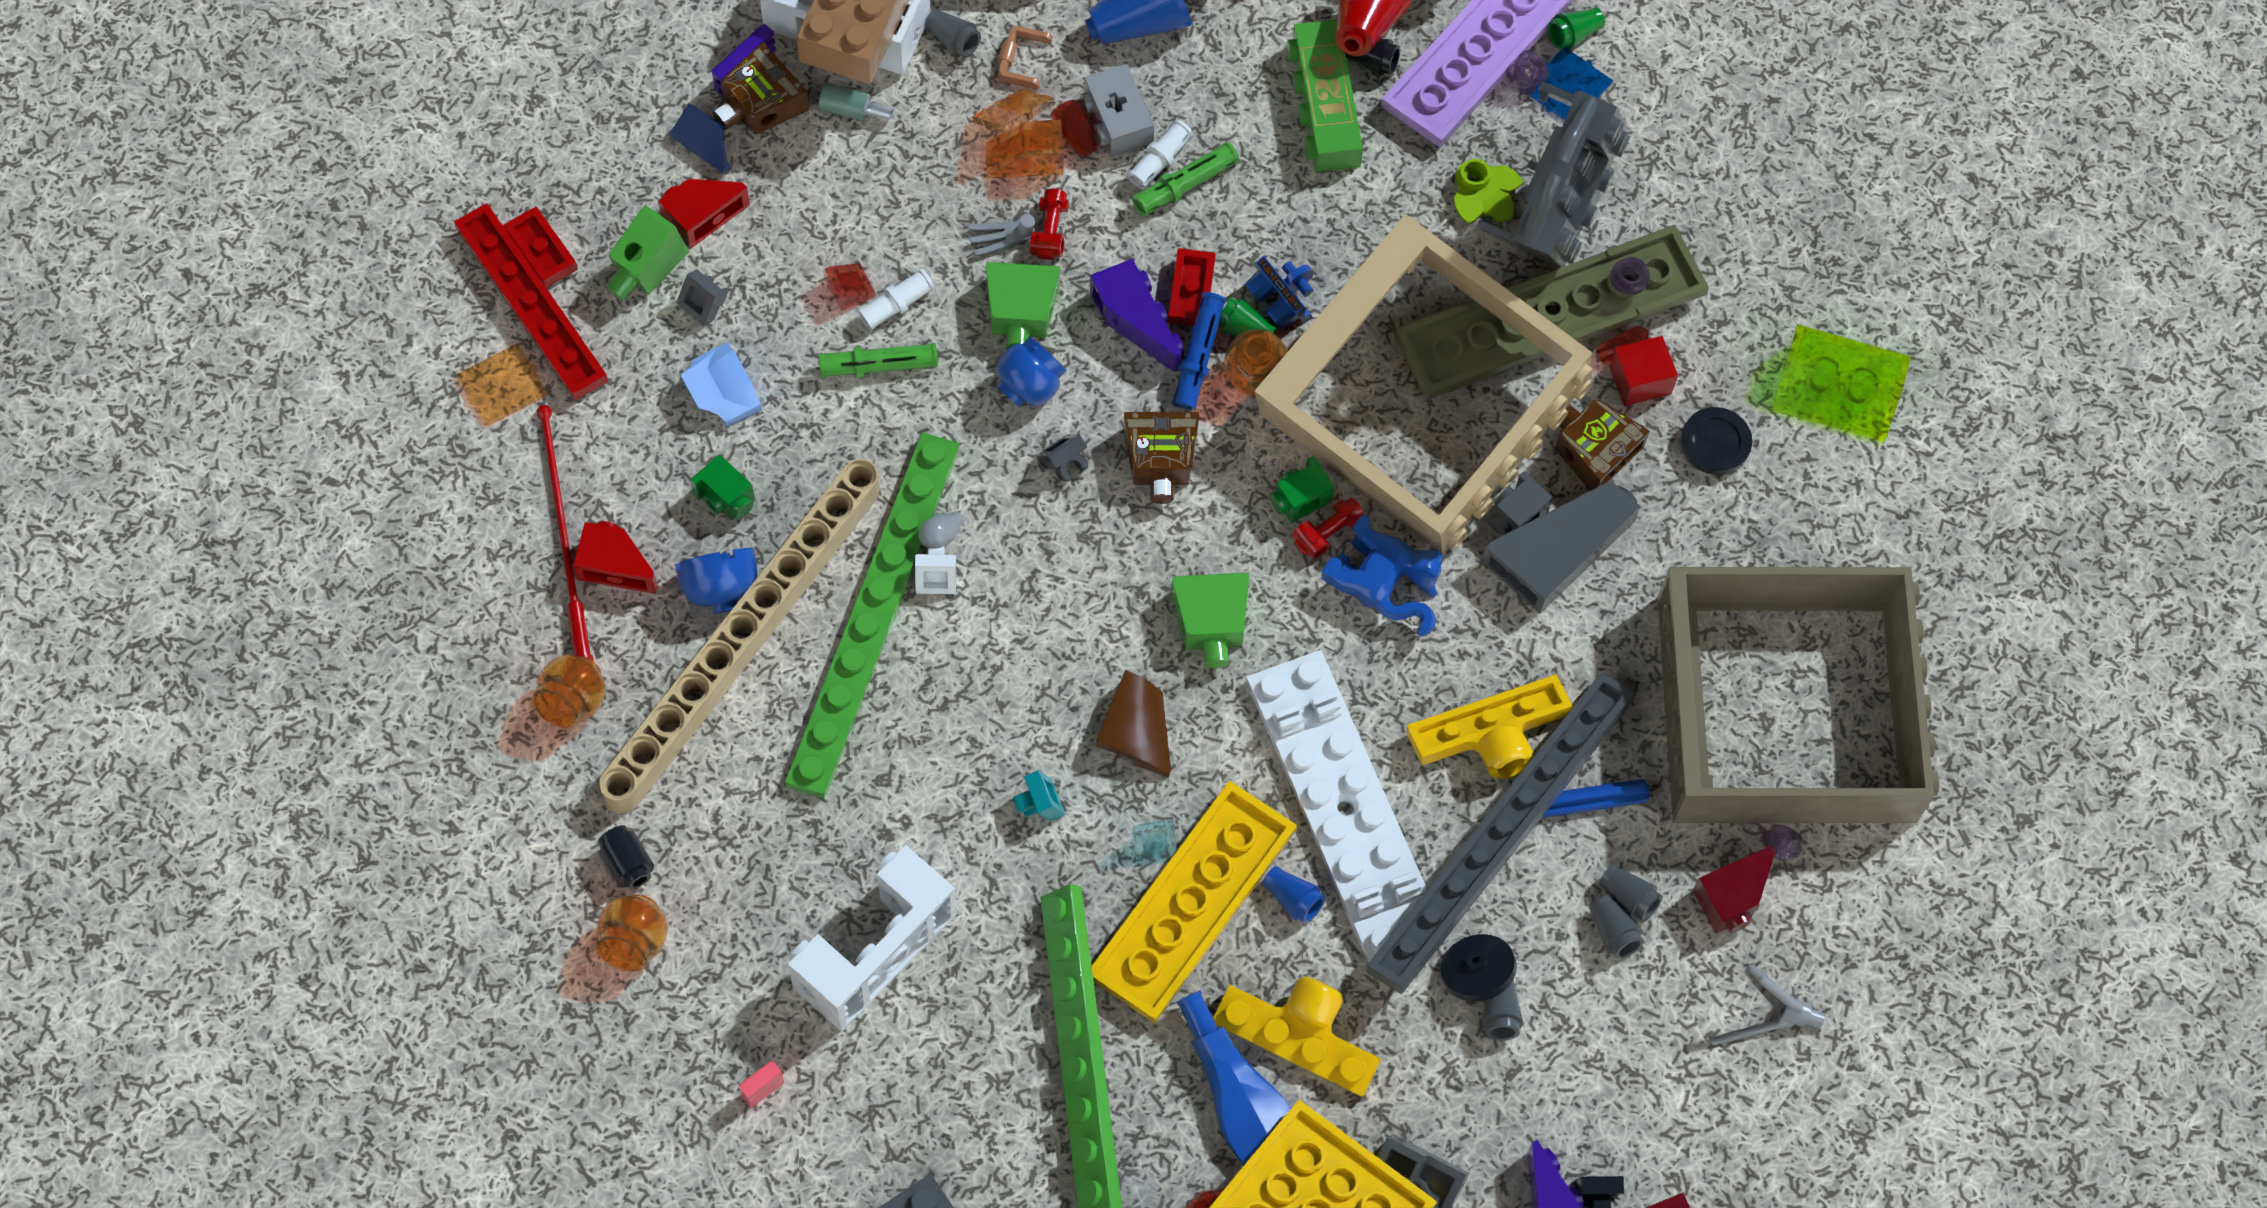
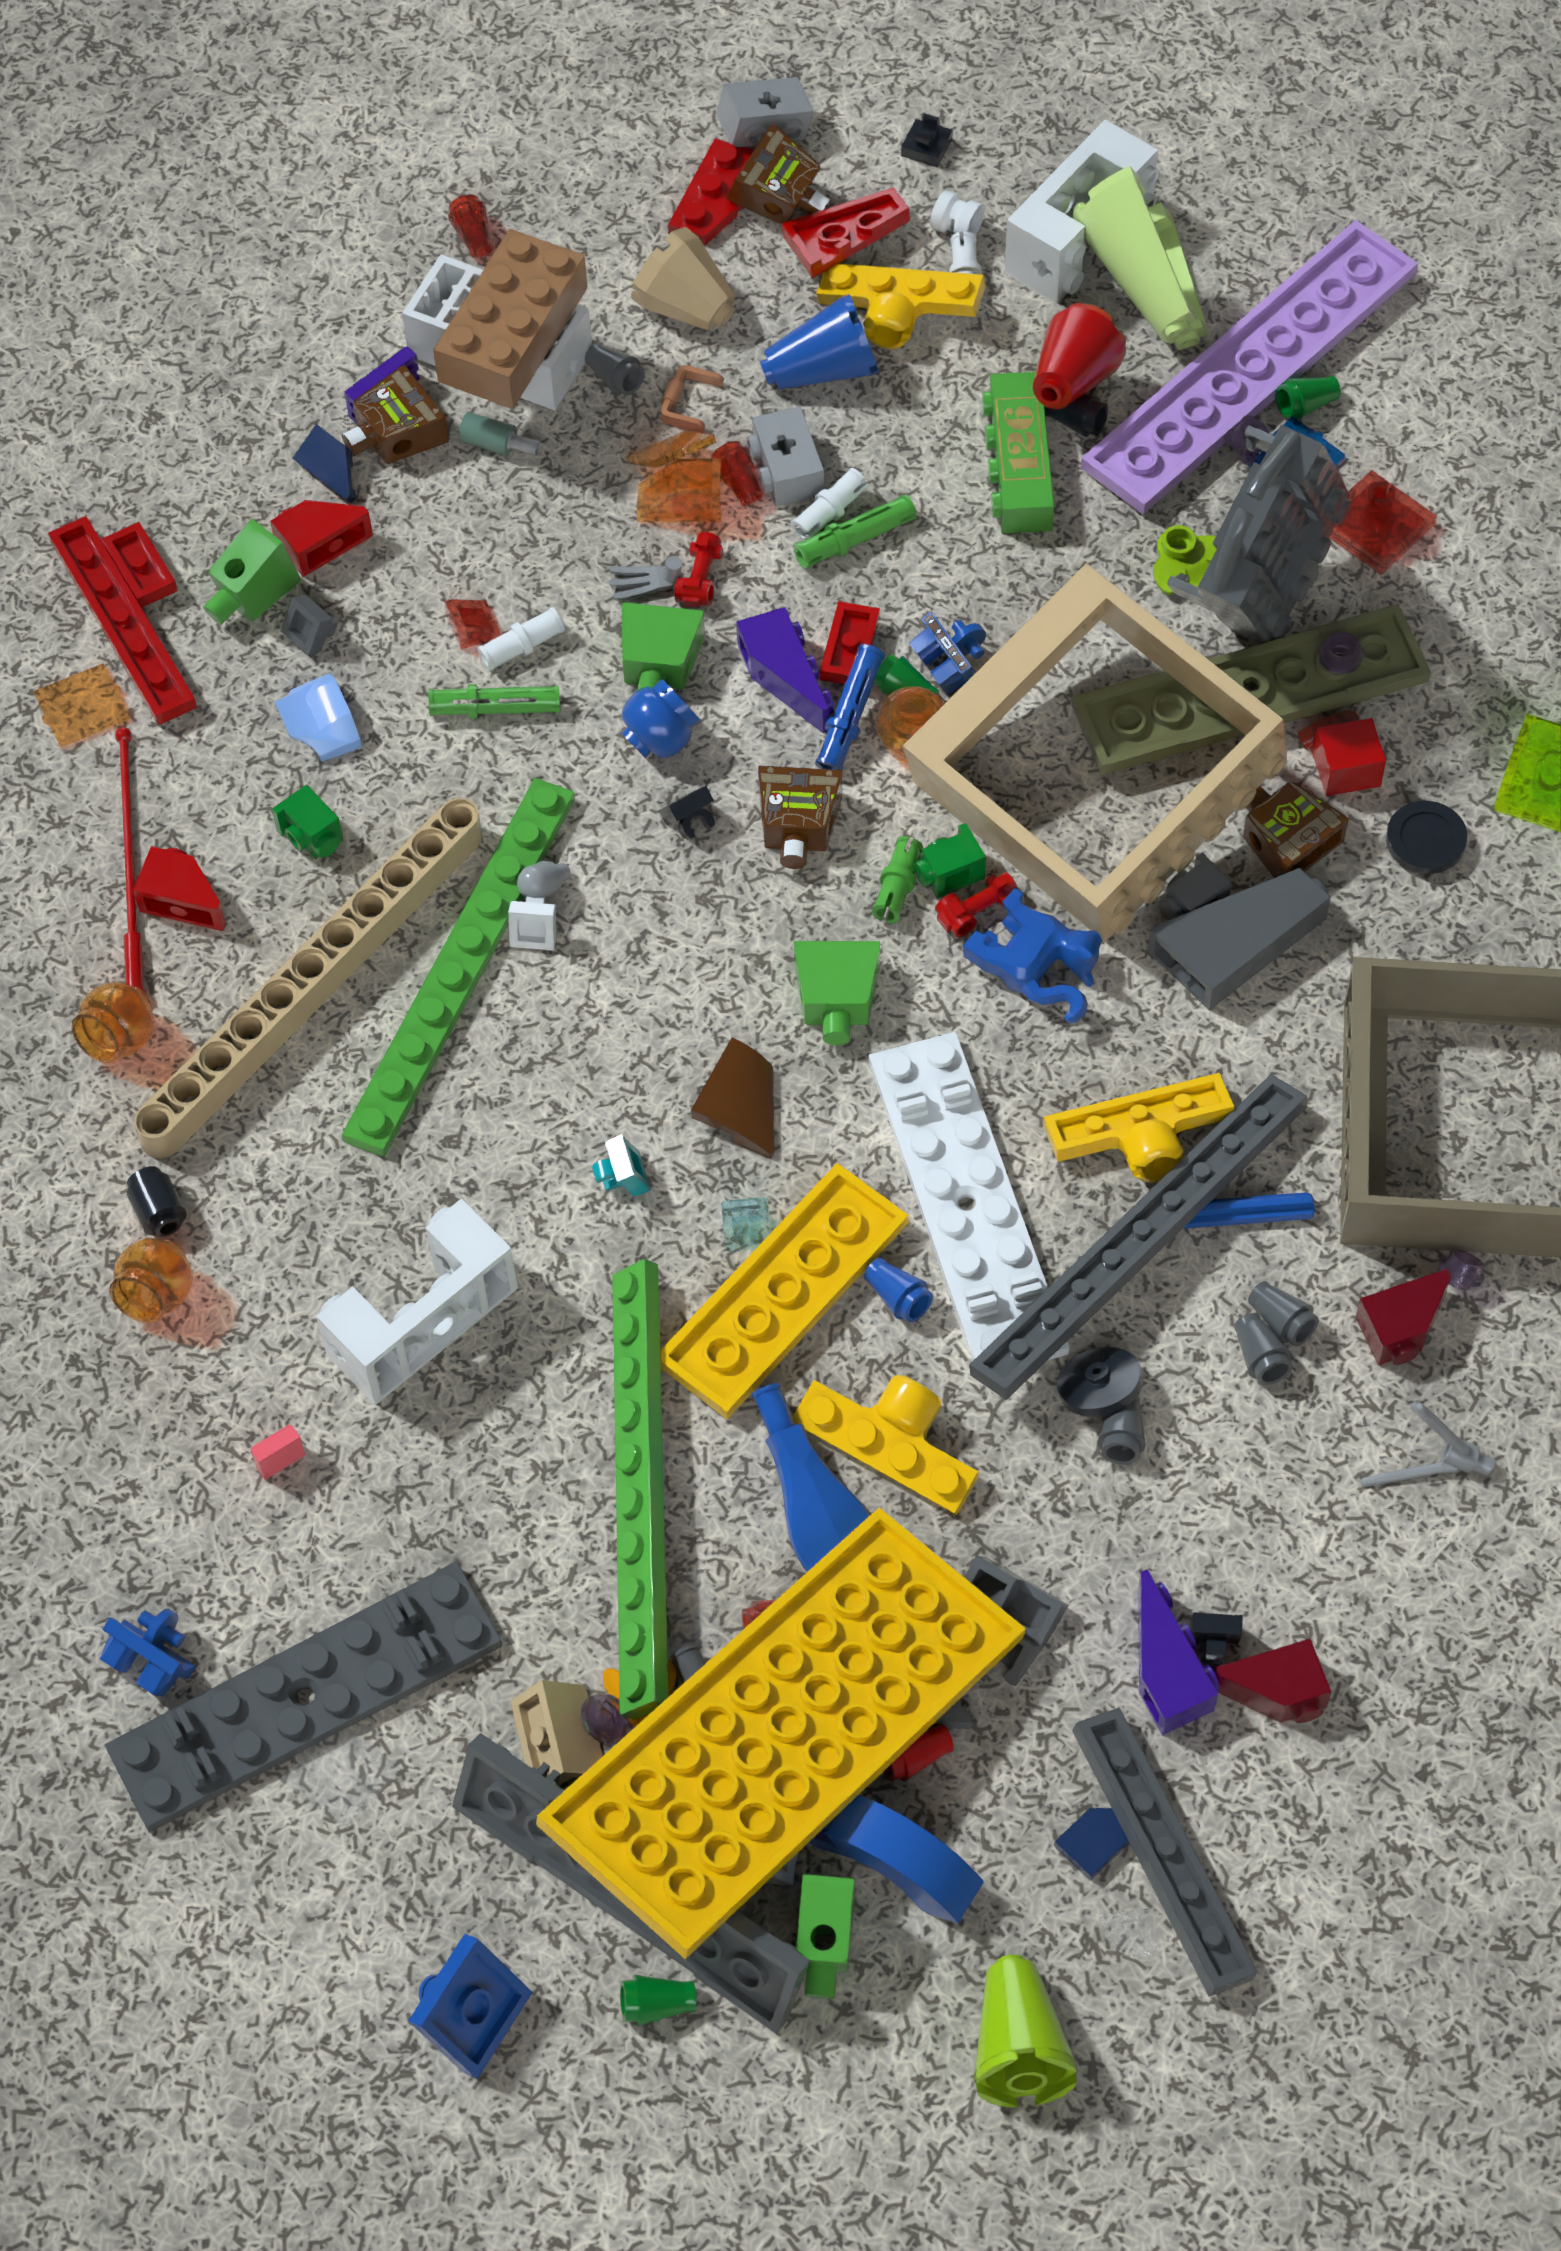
camera: 10 degrees right, 5 degrees down
(717, 578) = (288, 913): blue cylinder -> none
(1256, 509) = (897, 879): none -> bright green pin
(1654, 146) = (1381, 523): none -> clear red tile

